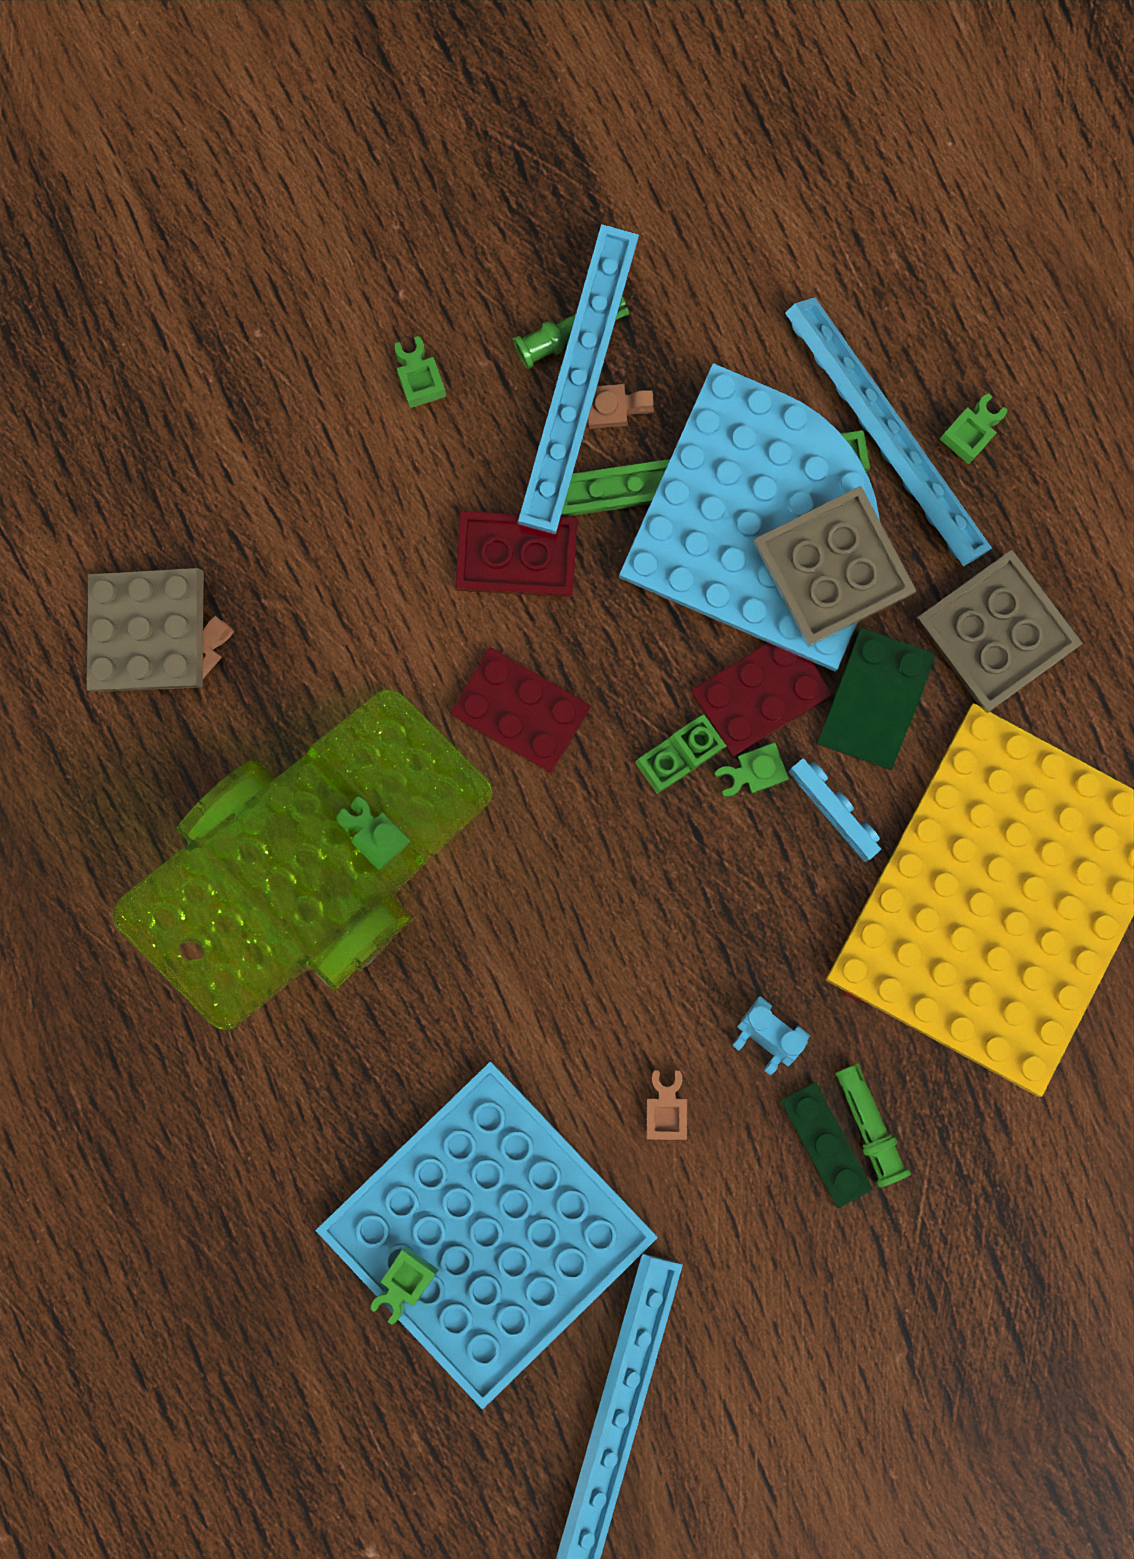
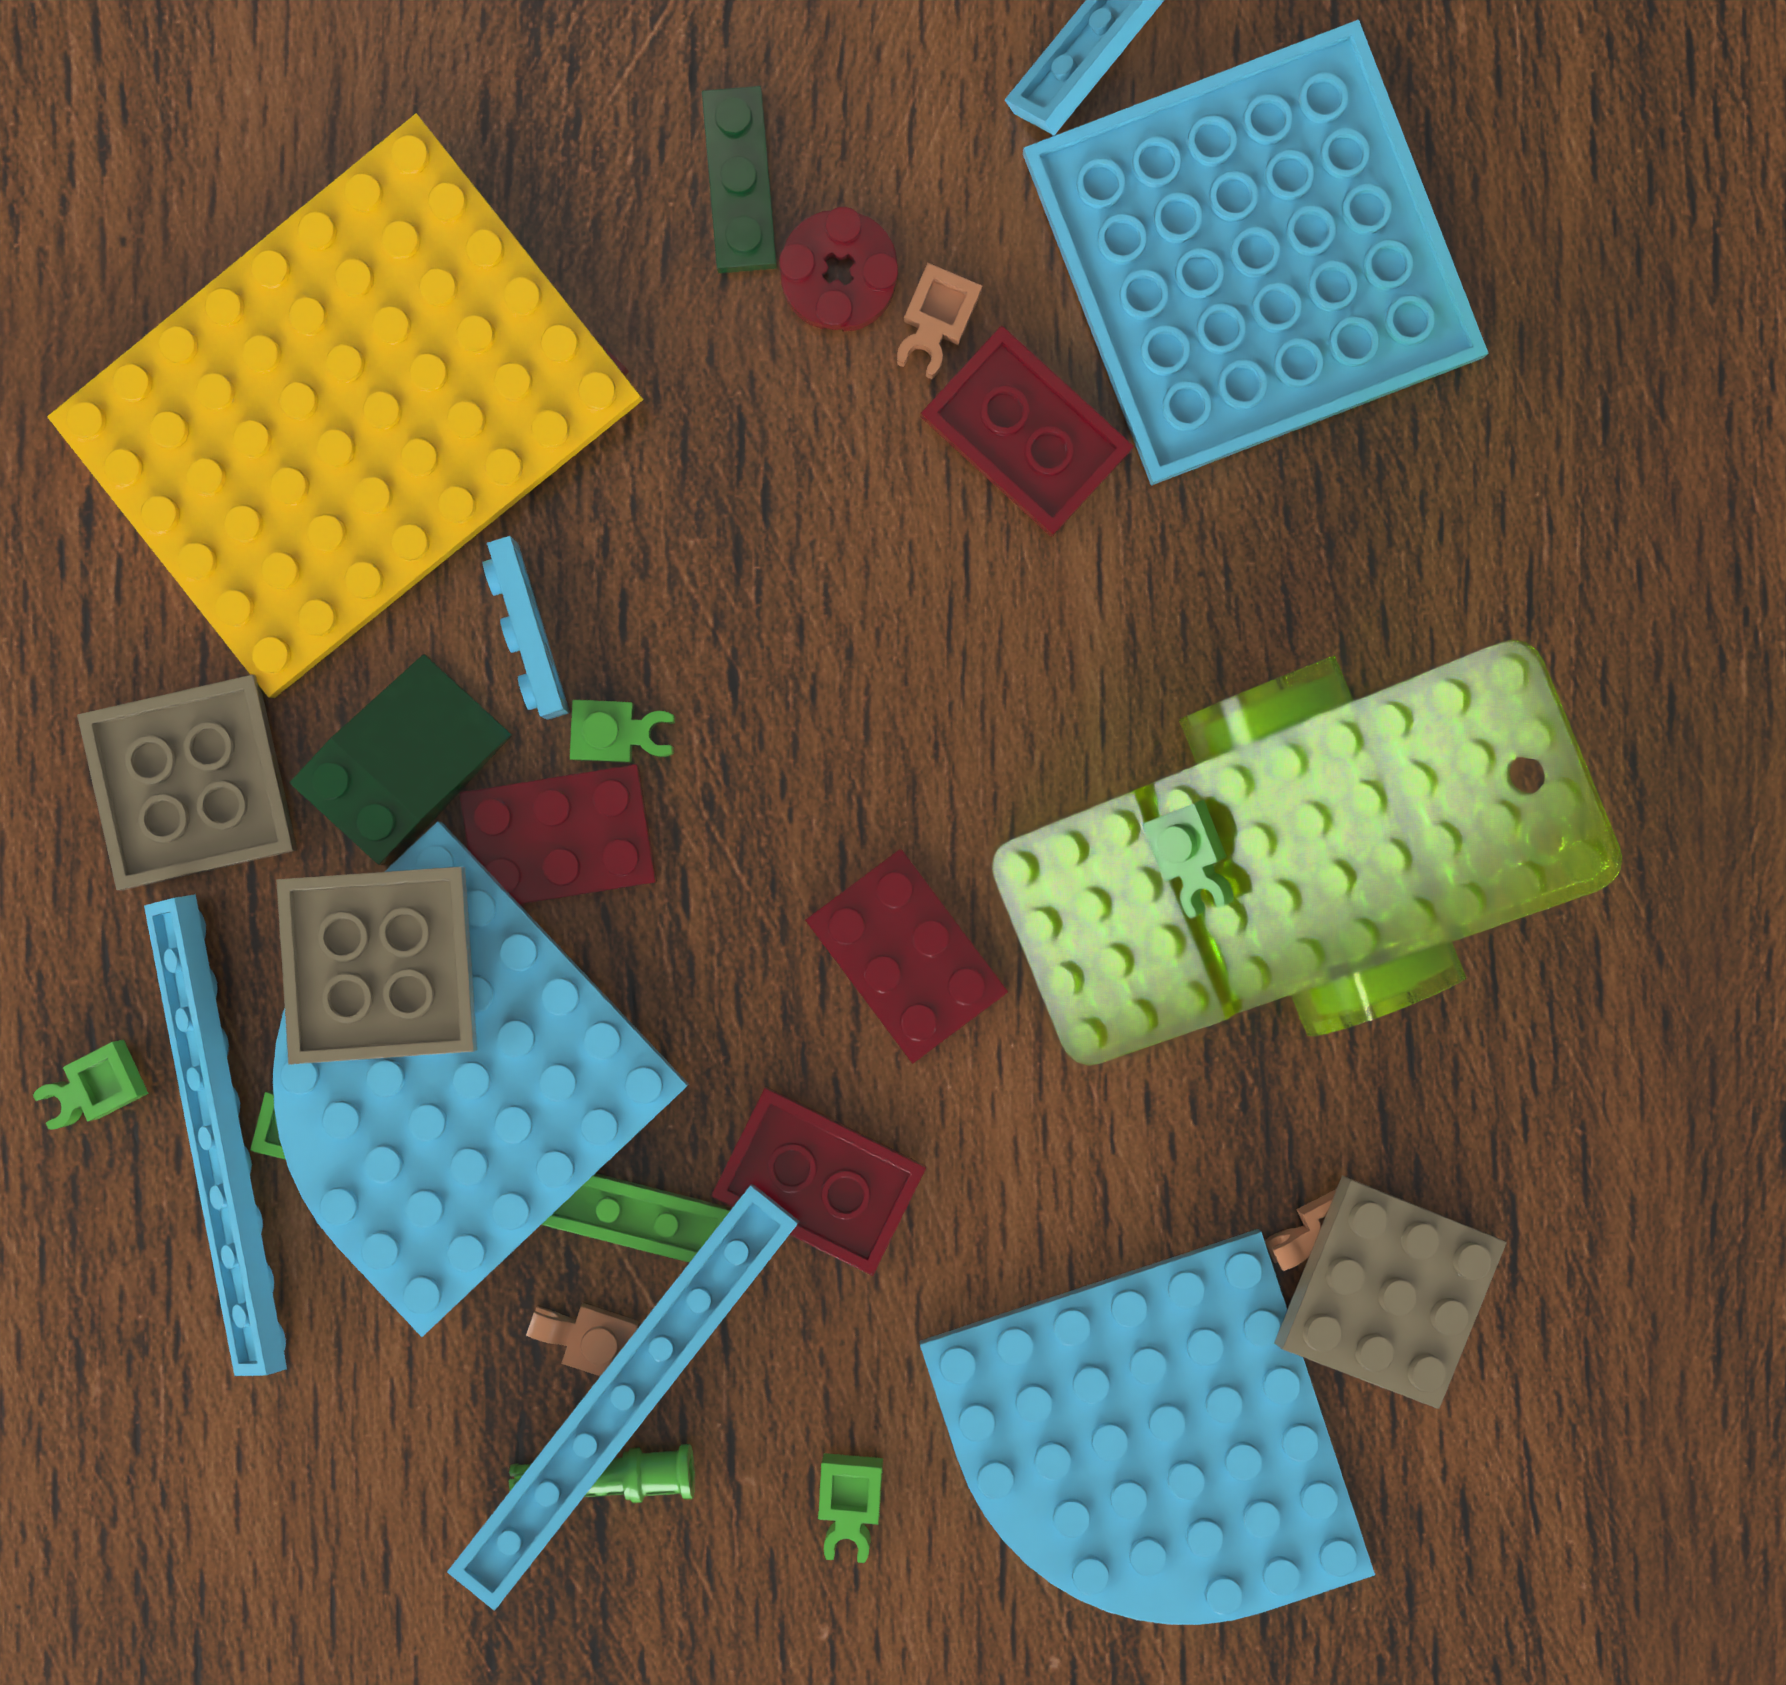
camera: 165 degrees left, 5 degrees up
(252, 485) = (1154, 1441): none -> medium azure plate
(406, 1280) = (1396, 227): bright green plate -> none
(581, 1061) = (1026, 431): none -> dark red plate
(680, 754) = (708, 799): bright green slope -> none
(762, 1107) = (840, 235): none -> dark red plate
(771, 1035) = (749, 356): medium azure piece -> none
(878, 1143) = (667, 150): bright green pin -> none

